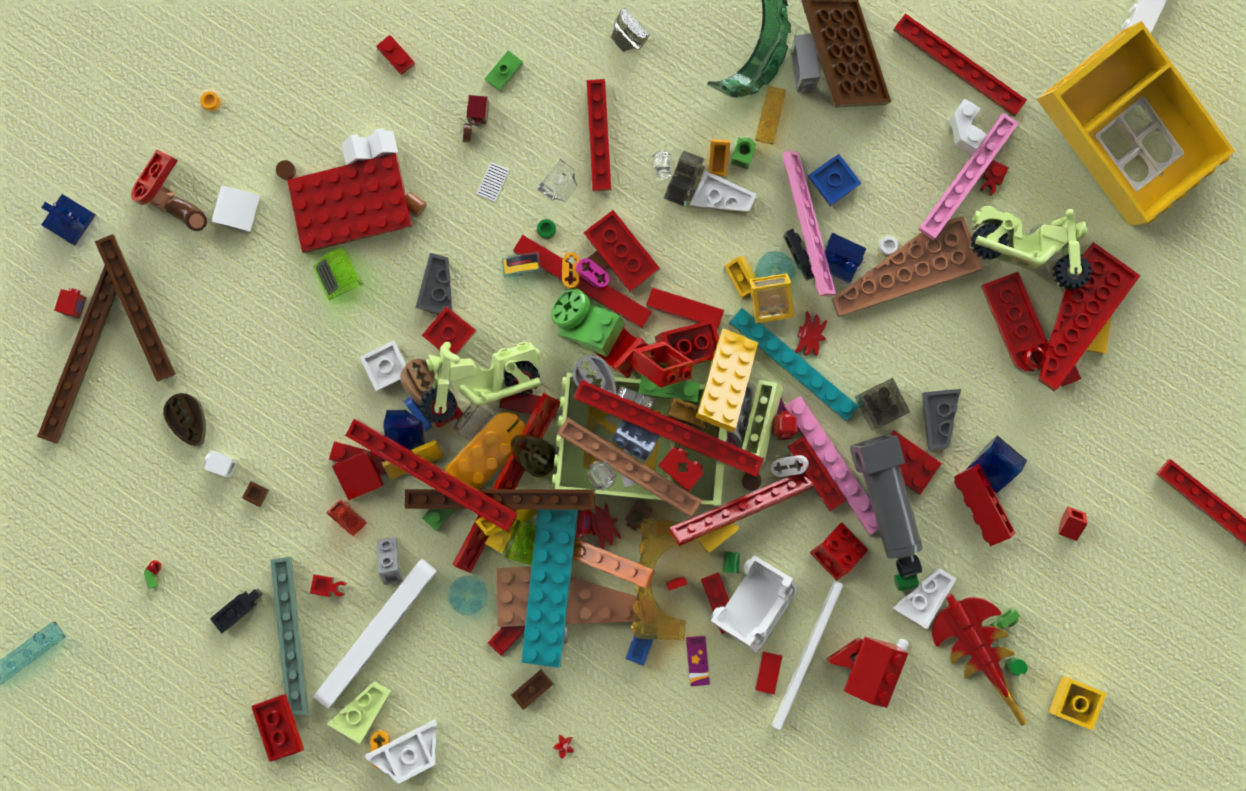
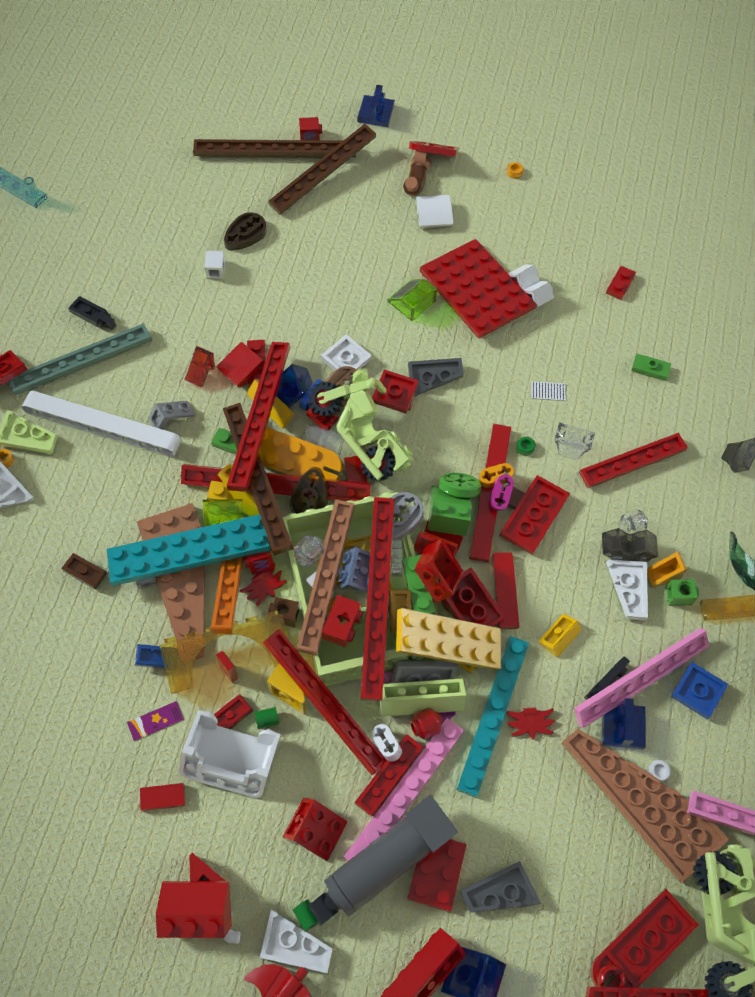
camera: 65 degrees right, 20 degrees down
(150, 573) = (107, 245): arm -> none
(255, 494) = (198, 297): reddish brown plate -> none
(285, 170) = (484, 236): reddish brown tile -> none
(324, 585) = (132, 372): red plate -> none
(415, 204) = (499, 335): dark orange piece -> none
(458, 601) = (164, 496): clear light blue plate -> none
(467, 132) = (581, 354): reddish brown tile -> none
(477, 110) = (606, 356): dark red brick -> none
(505, 638) = (126, 532): red tile -> none
(521, 264) = (484, 434): slope -> none
(563, 746) = (34, 617): red plant -> none
(750, 482) = (358, 711): reddish brown tile -> none
(771, 298) = (550, 663): piece -> none
(773, 259) = (573, 671): clear light blue plate -> none
(807, 655) = (192, 830): white tile -> none
(882, 404) = (488, 818): clear smoke brick -> none

